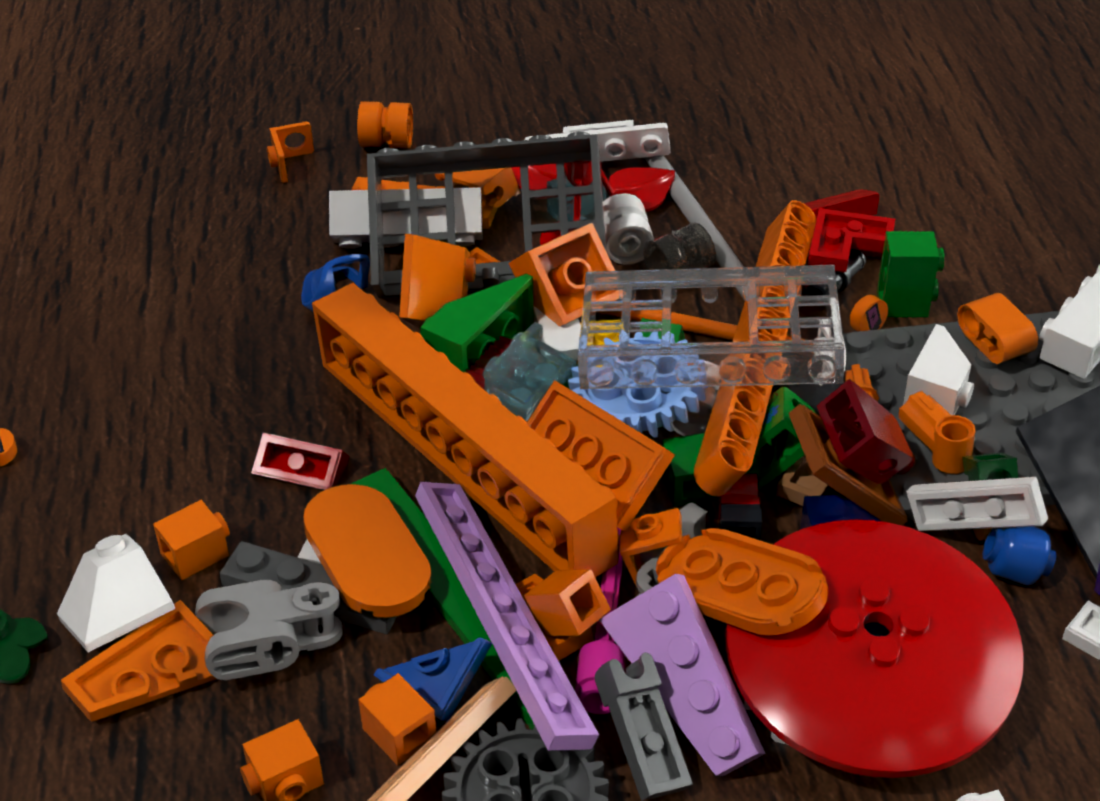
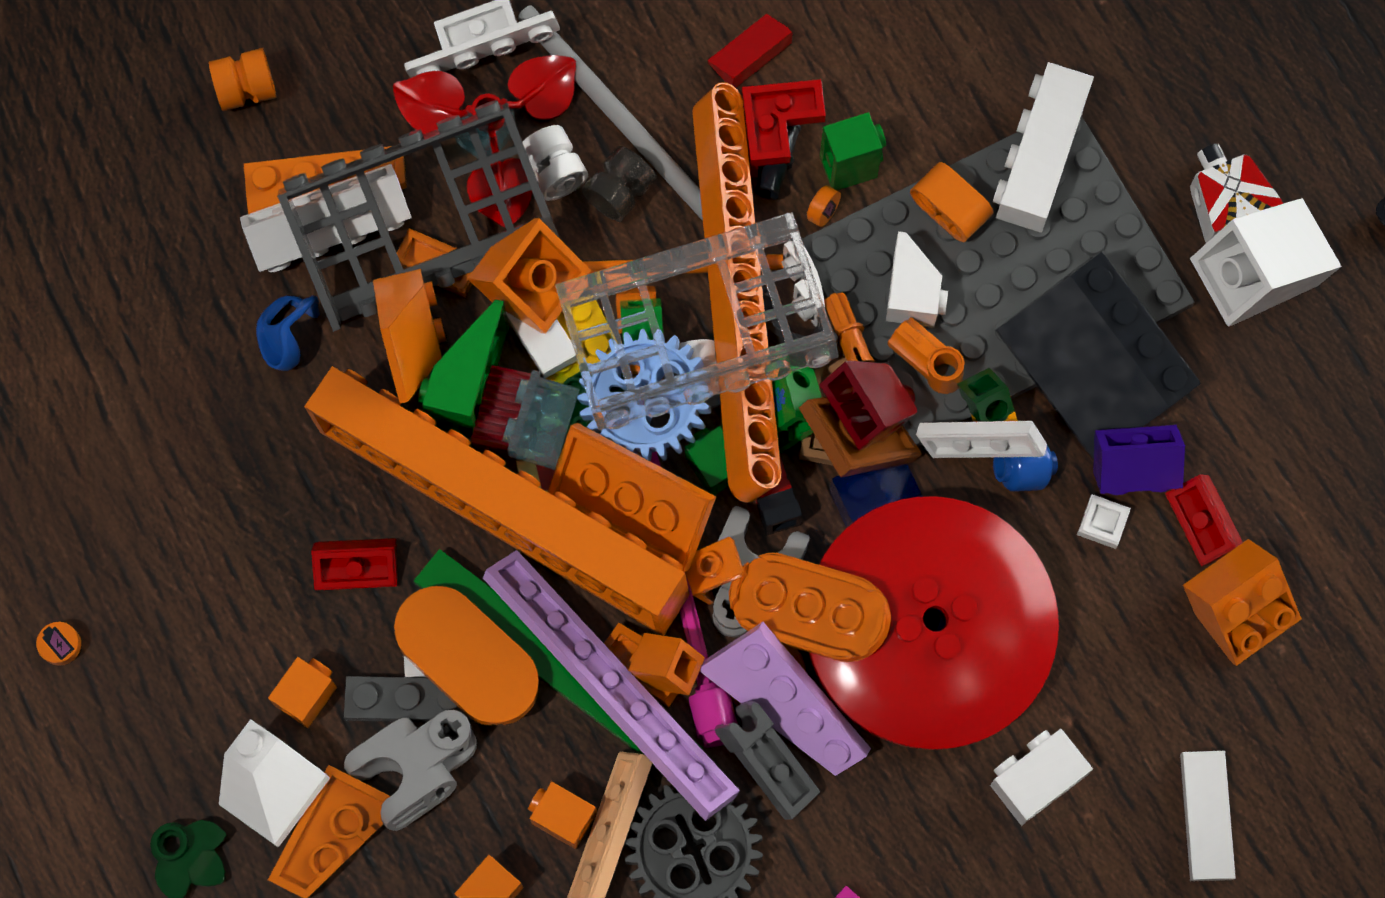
camera: 20 degrees left, 30 degrees up
(280, 151) = (140, 142): orange bracket -> none
(441, 675) = (579, 765): blue tile -> none
(498, 181) = (360, 129): orange hinge -> none

